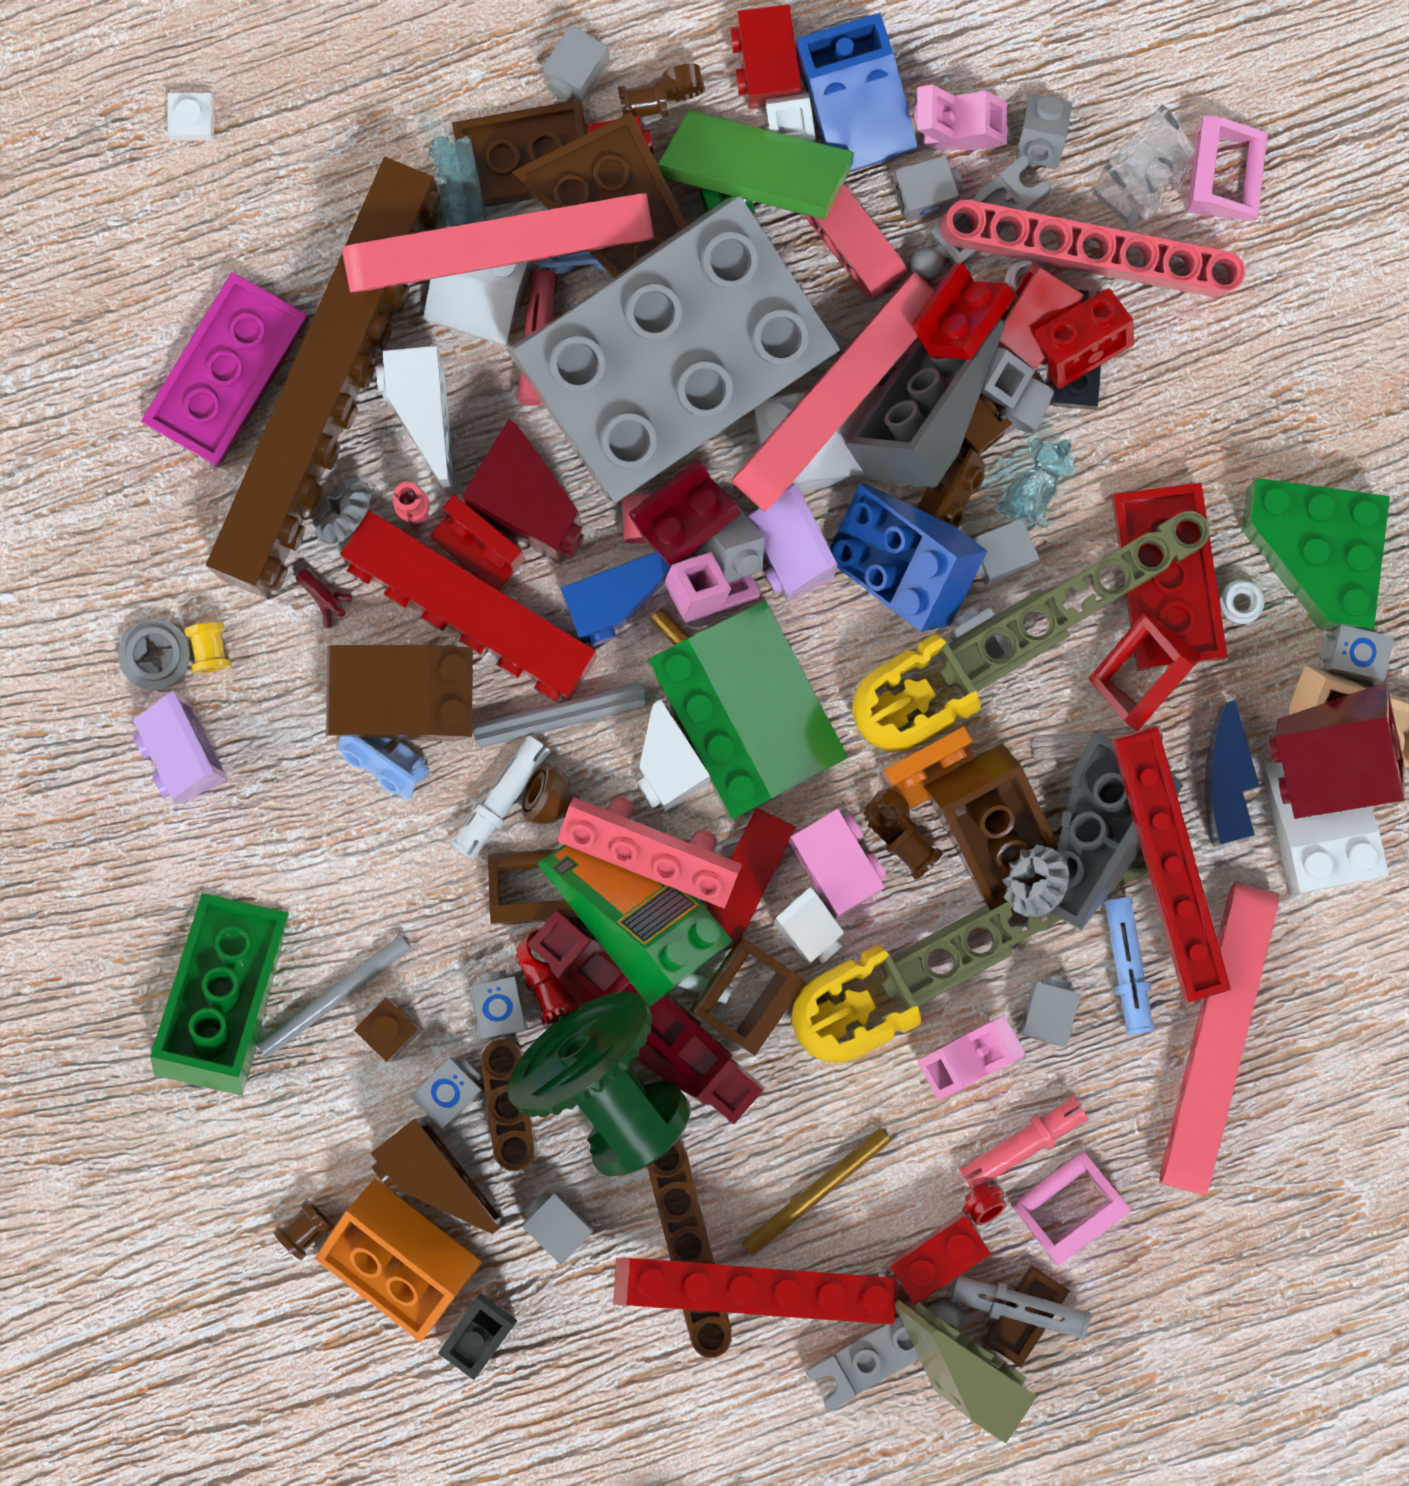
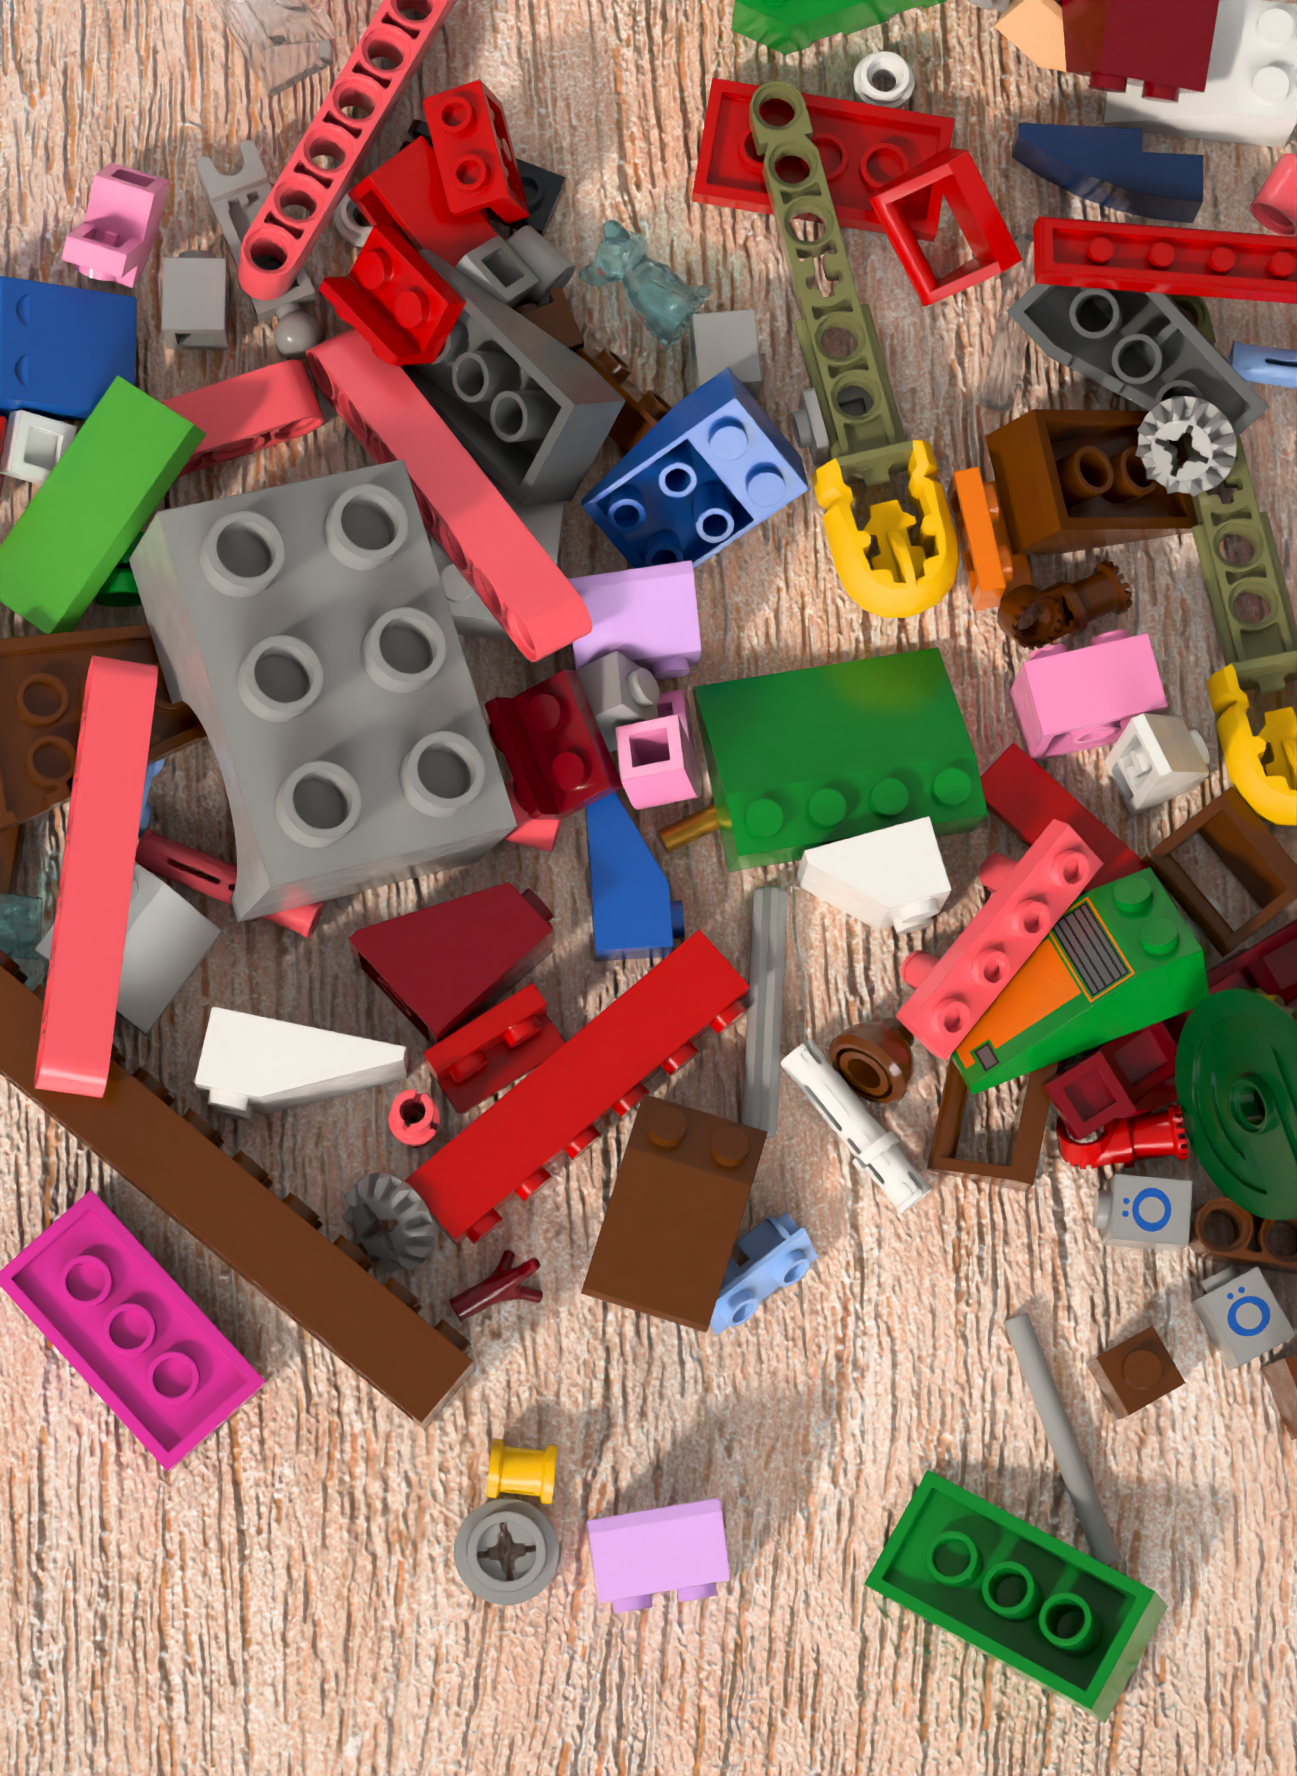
camera: 85 degrees left, 5 degrees down
(1044, 130) = (166, 126): light grey bracket -> none

